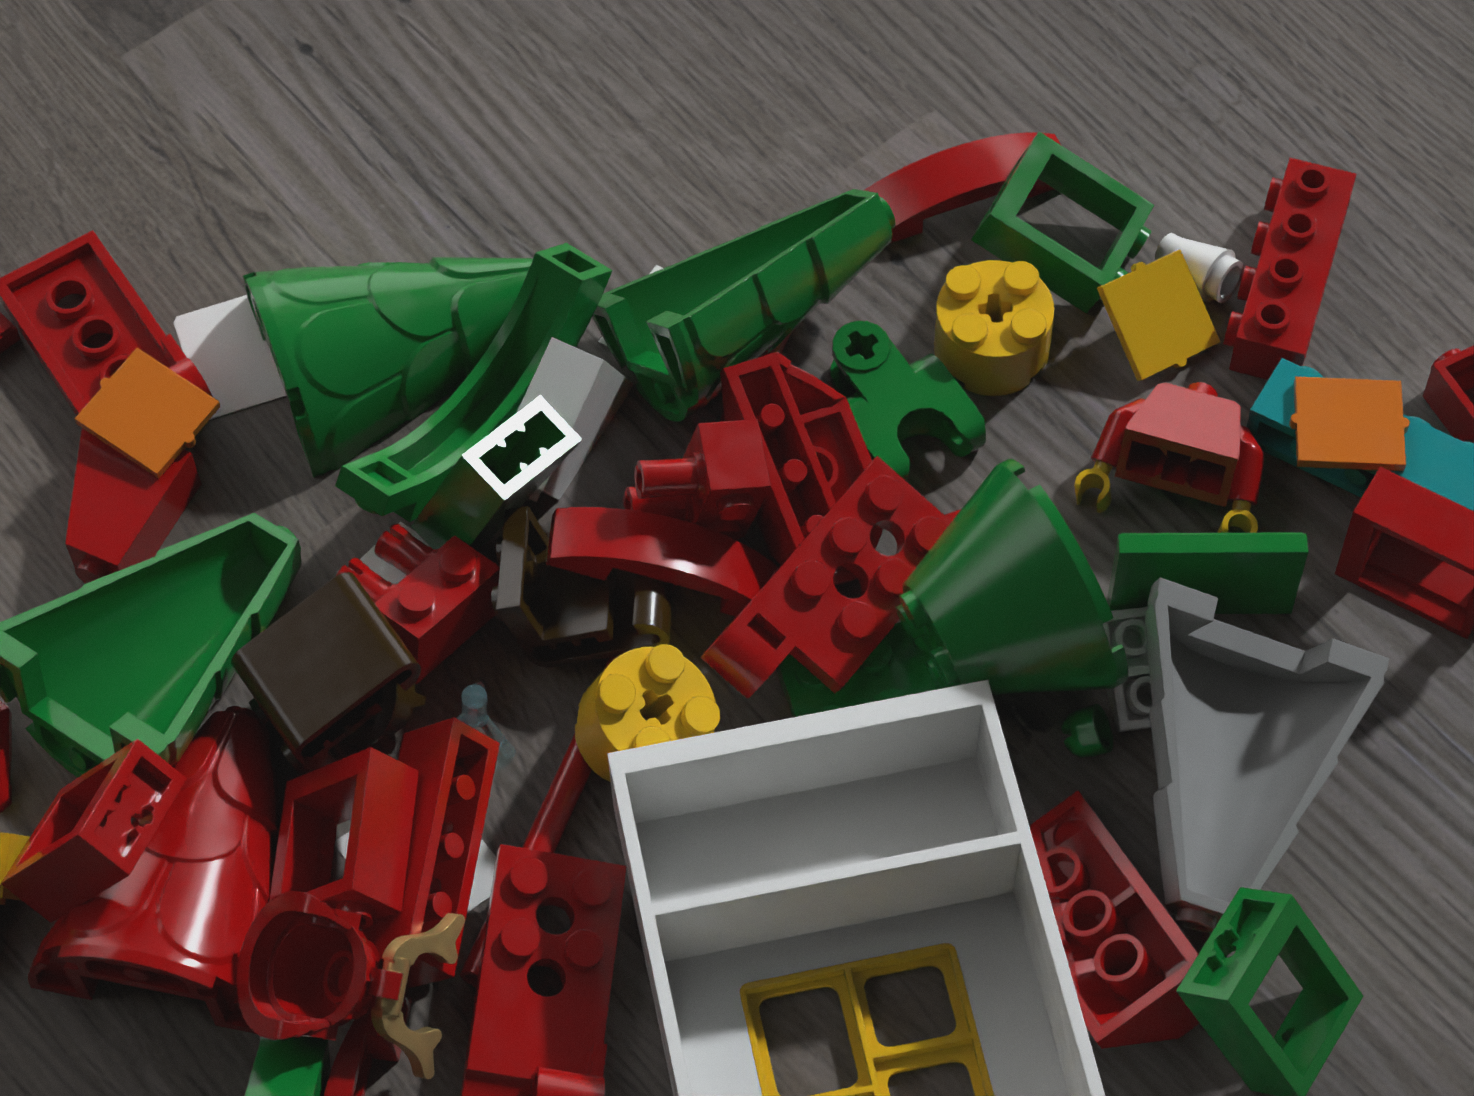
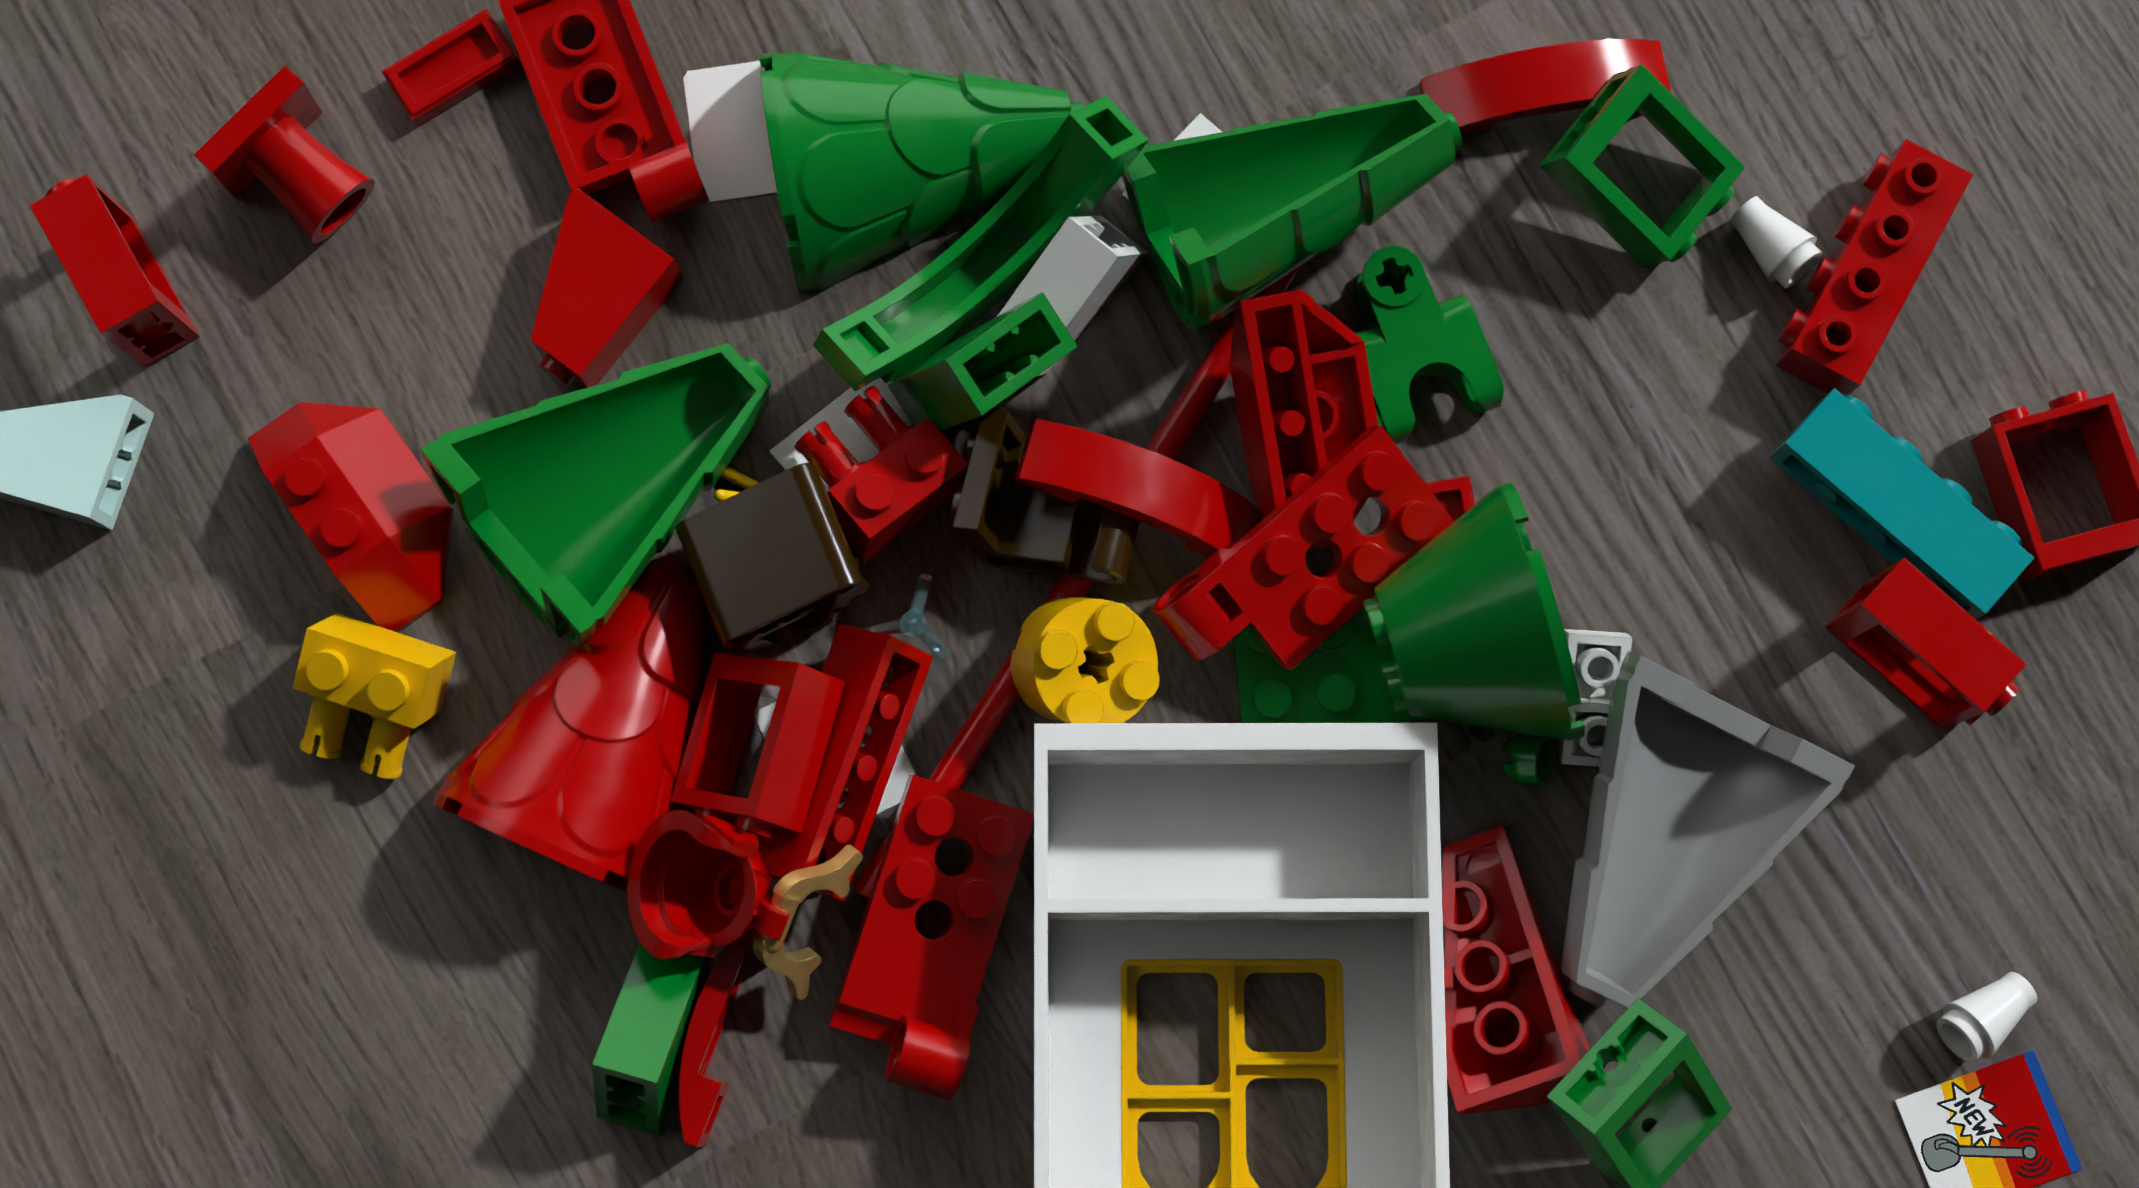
camera: 10 degrees right, 20 degrees up
(88, 832) = (521, 663): red window -> none
(147, 412) = (635, 206): orange piece -> none
(713, 484) = (1205, 421): red brick -> none
(994, 325) = (1566, 252): yellow brick -> none
(1158, 315) = (1717, 296): yellow piece -> none
(1183, 445) = (1707, 463): red torso -> none
(1241, 569) = (1693, 620): green tile -> none
(1349, 423) = (1885, 484): orange piece -> none

